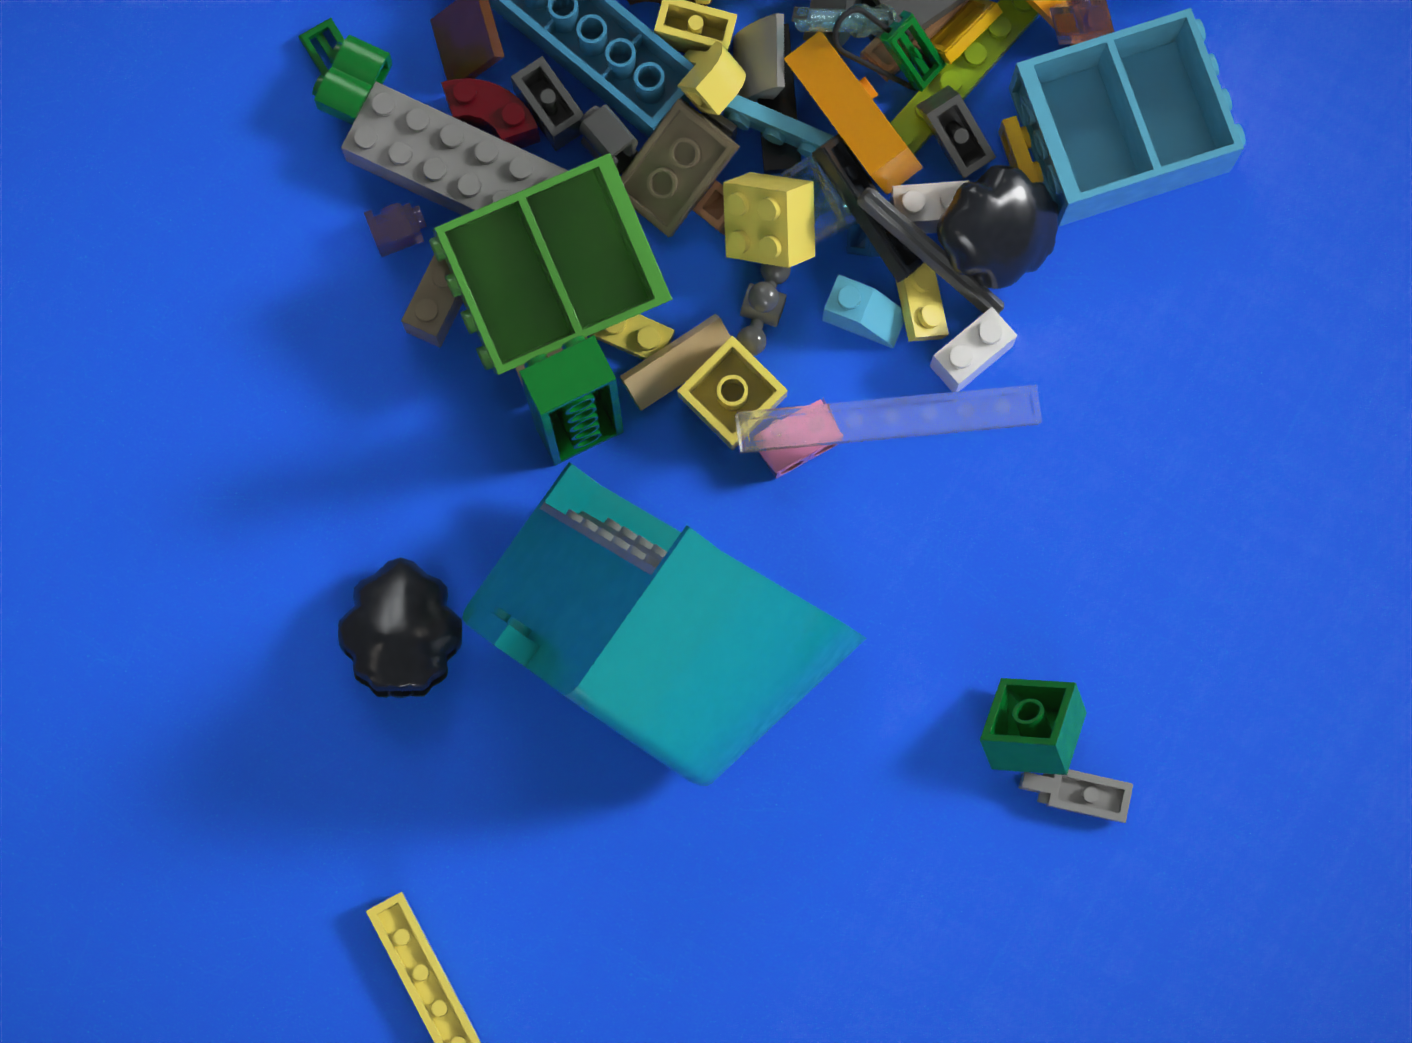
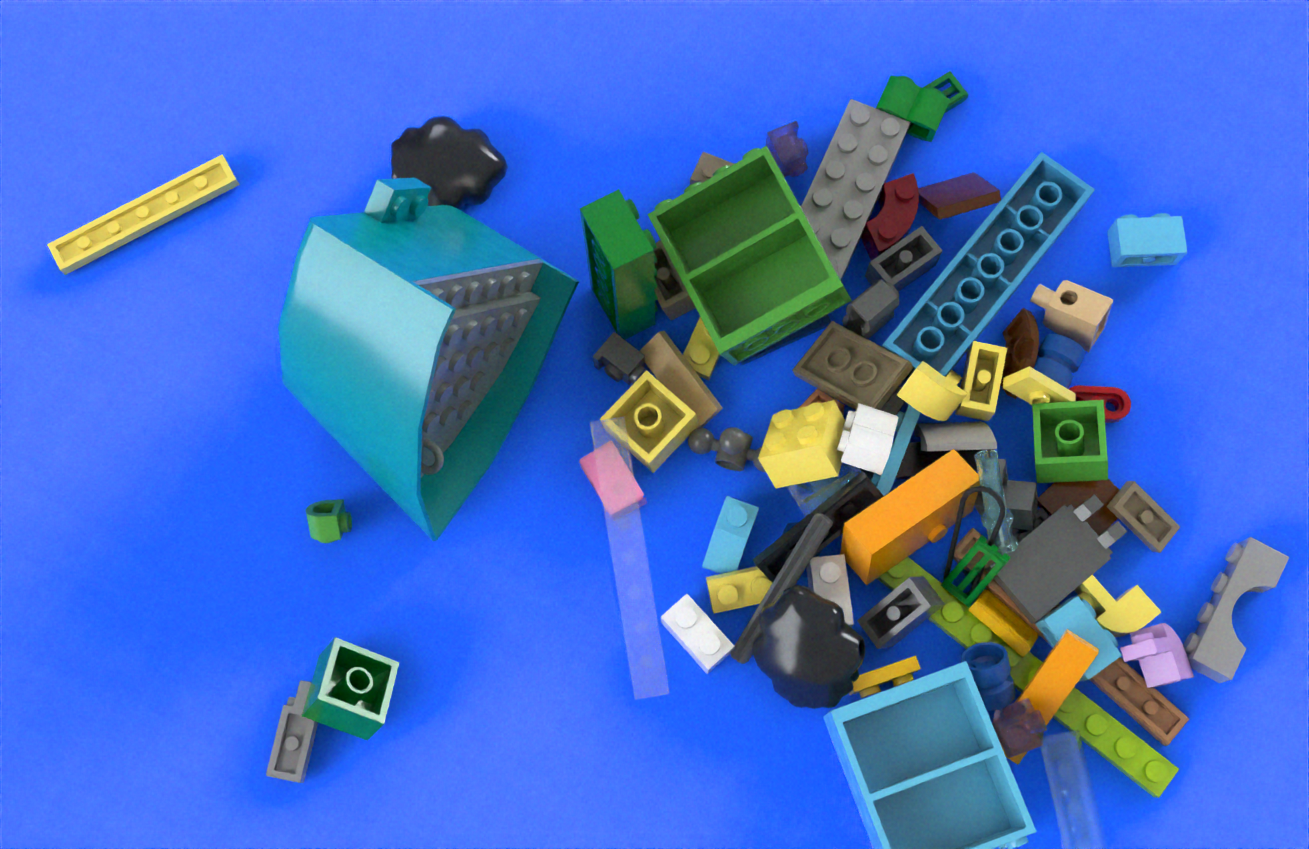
camera: 90 degrees right, 5 degrees down
(653, 427) = (620, 360): none -> dark grey brick
(771, 146) = (867, 438): none -> white brick
(837, 762) = (328, 520): none -> bright green plate
(1019, 42) = (991, 673): none -> blue wheel

